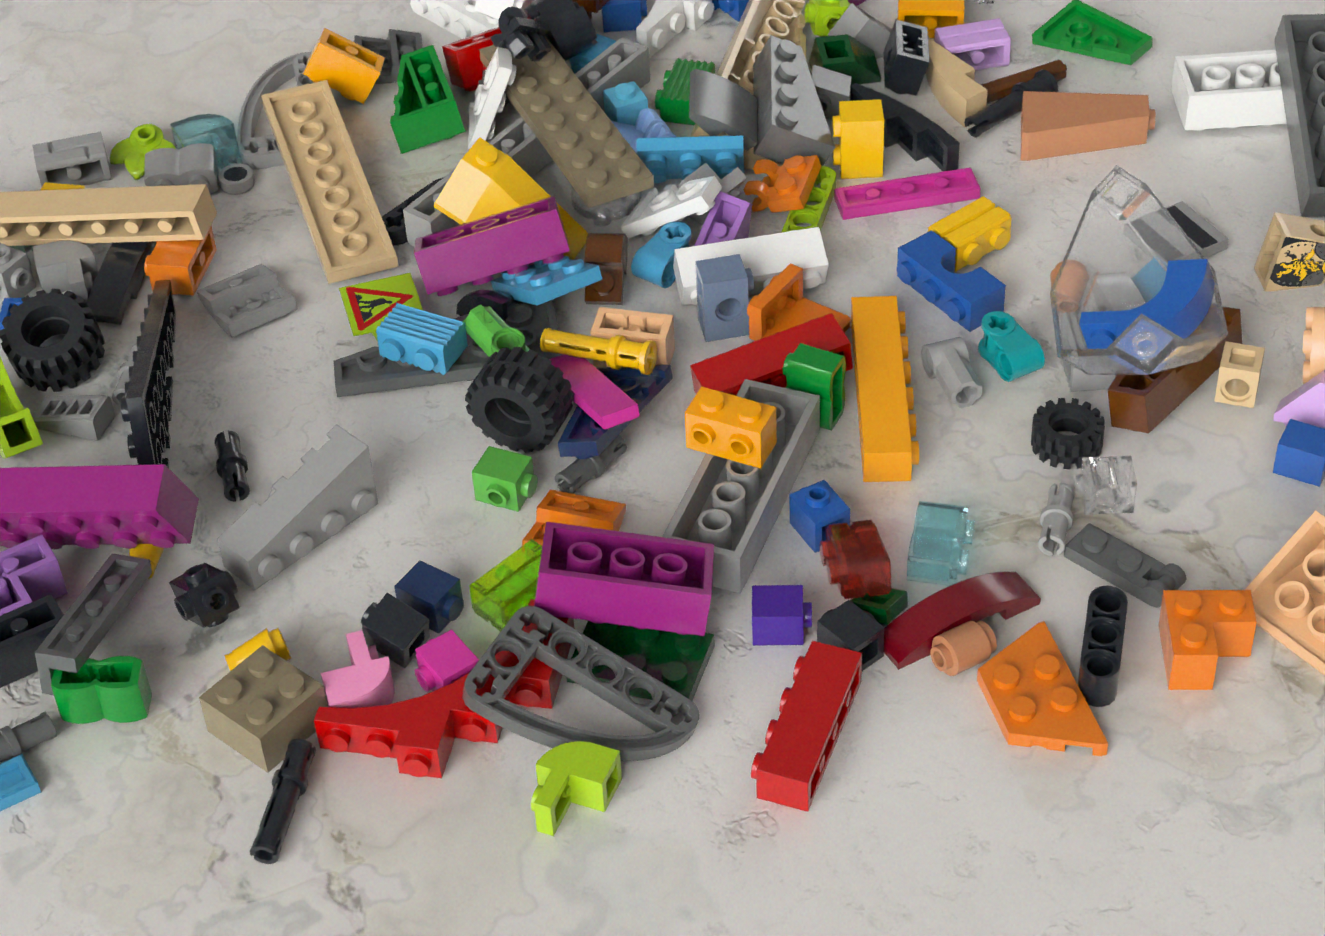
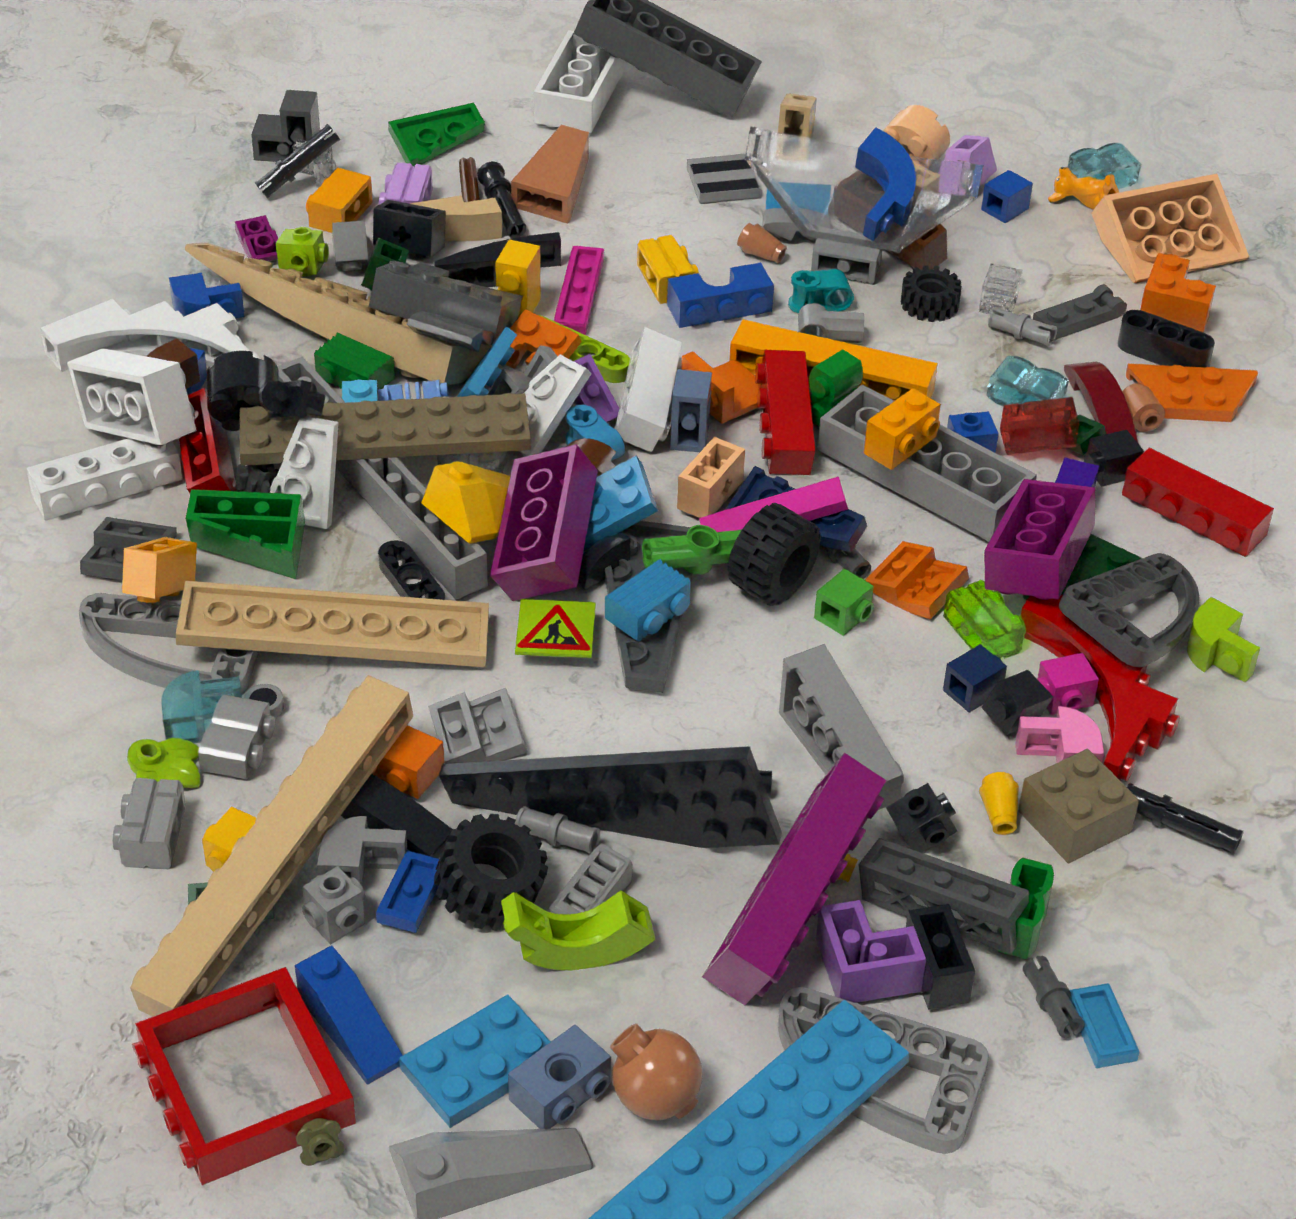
camera: 75 degrees left, 0 degrees up
(615, 351) = (736, 485): yellow pin -> none

